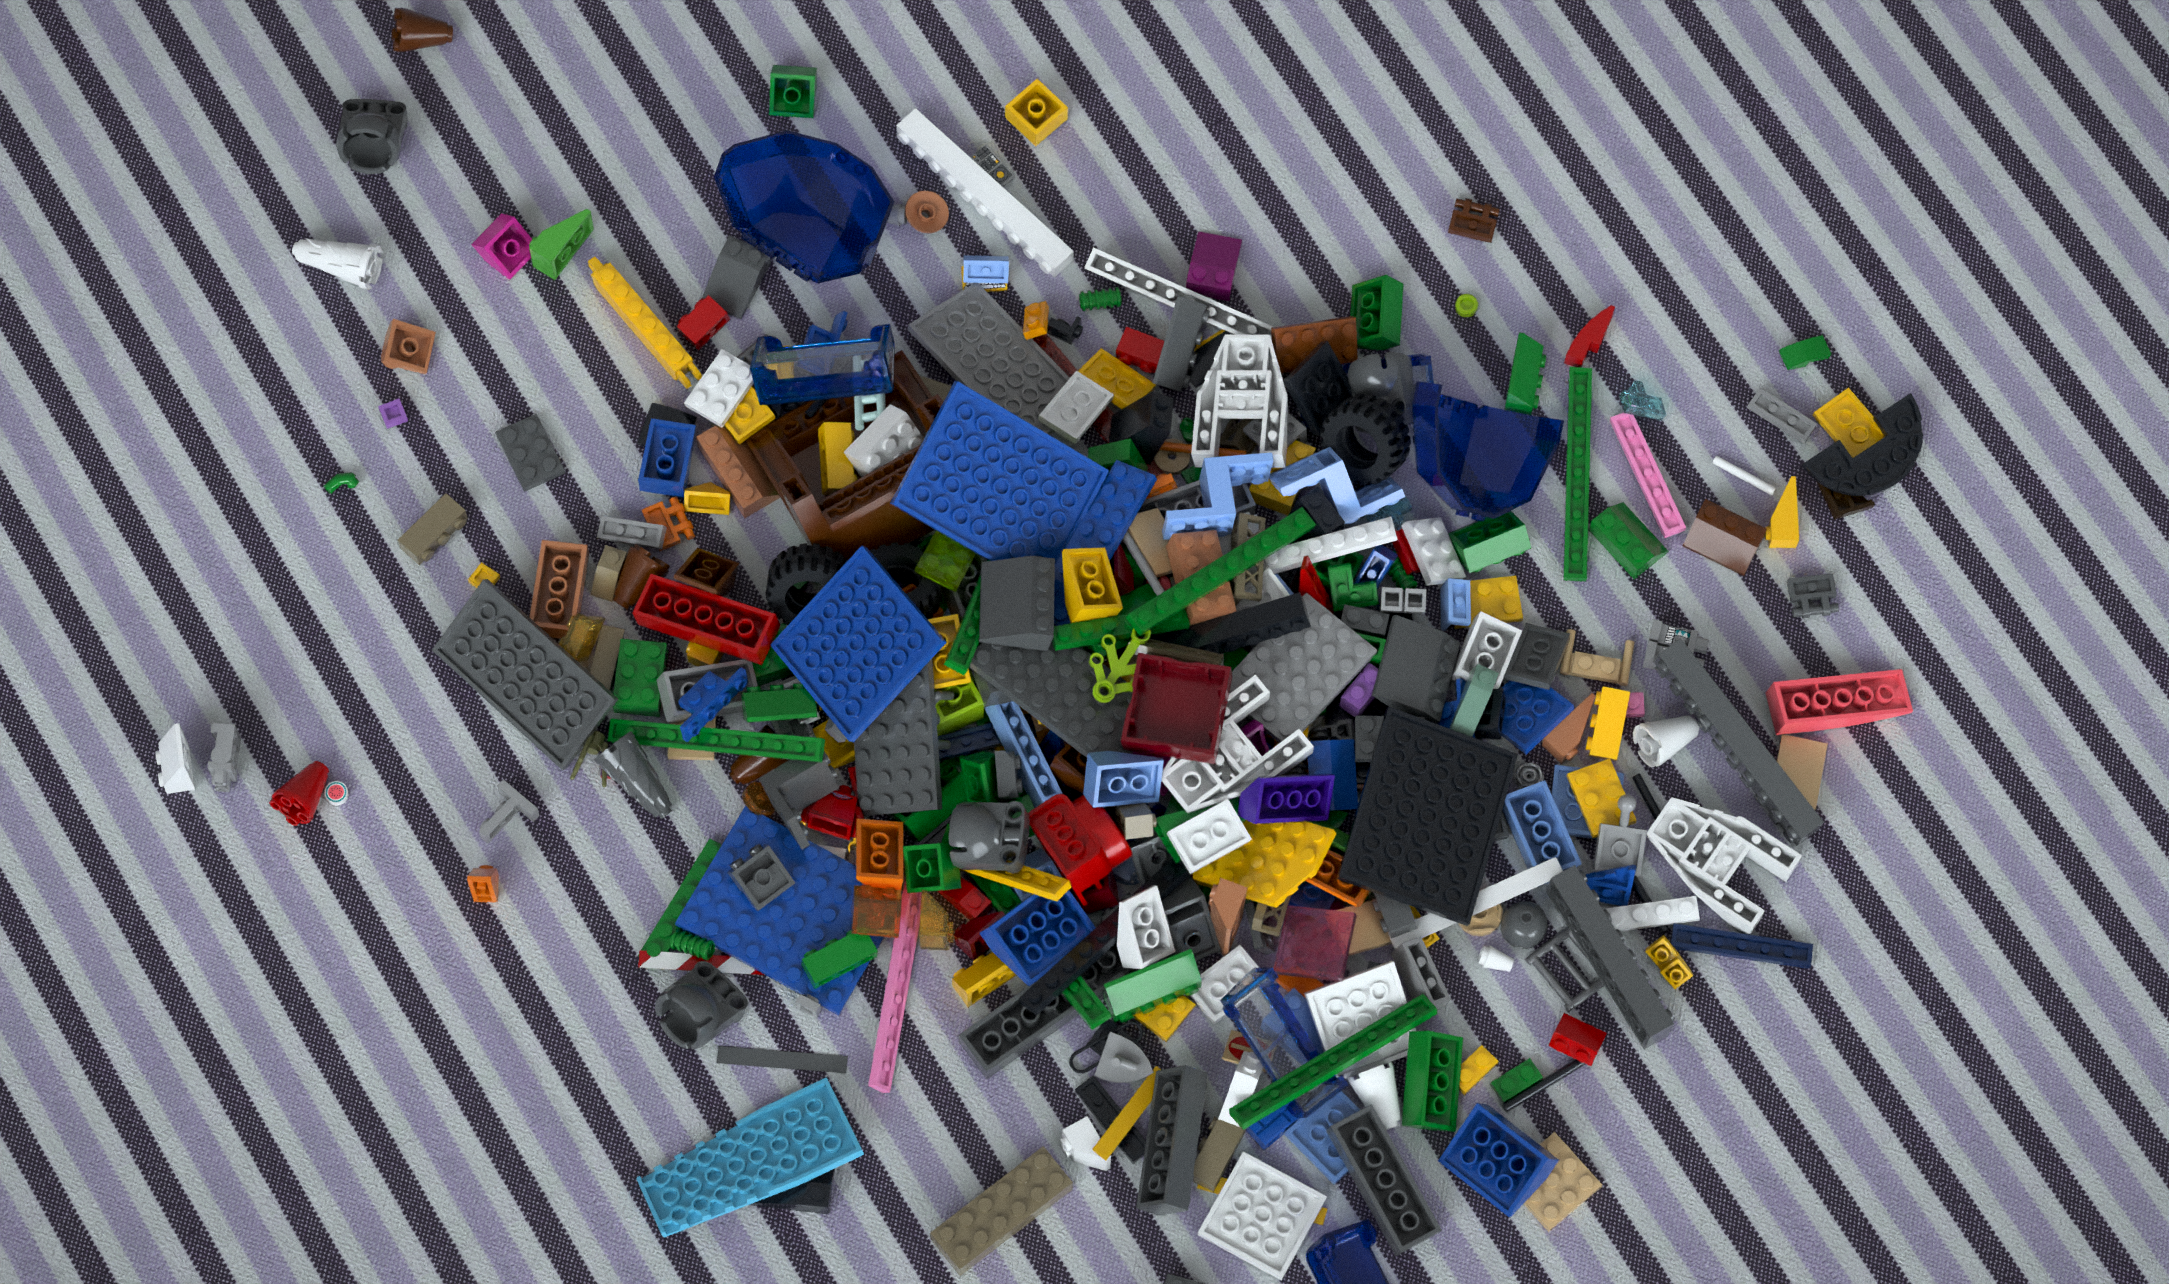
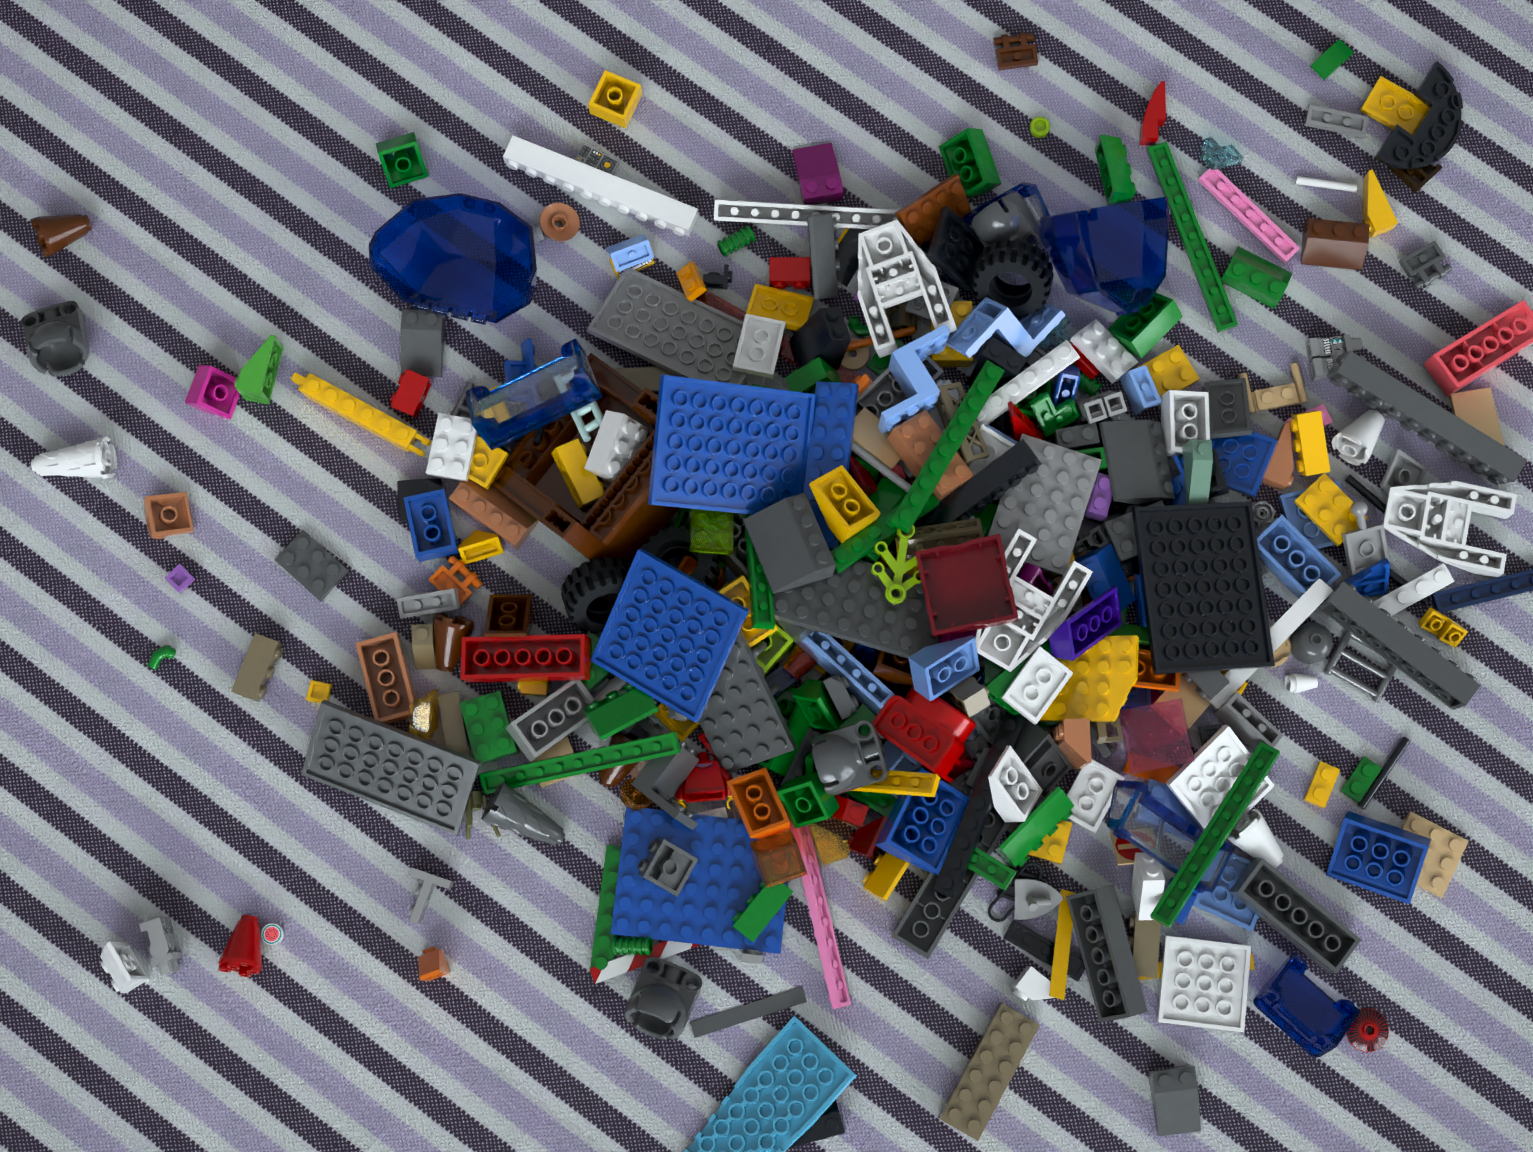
camera: 20 degrees left, 10 degrees up
(708, 698) = (557, 730): blue bracket -> none
(980, 731) = (798, 662): none -> clear red piece
(1432, 1081) = (1296, 811): green slope -> none
(1577, 1039) = (1398, 725): red brick -> none
(1697, 789) = (1402, 472): none -> light grey slope

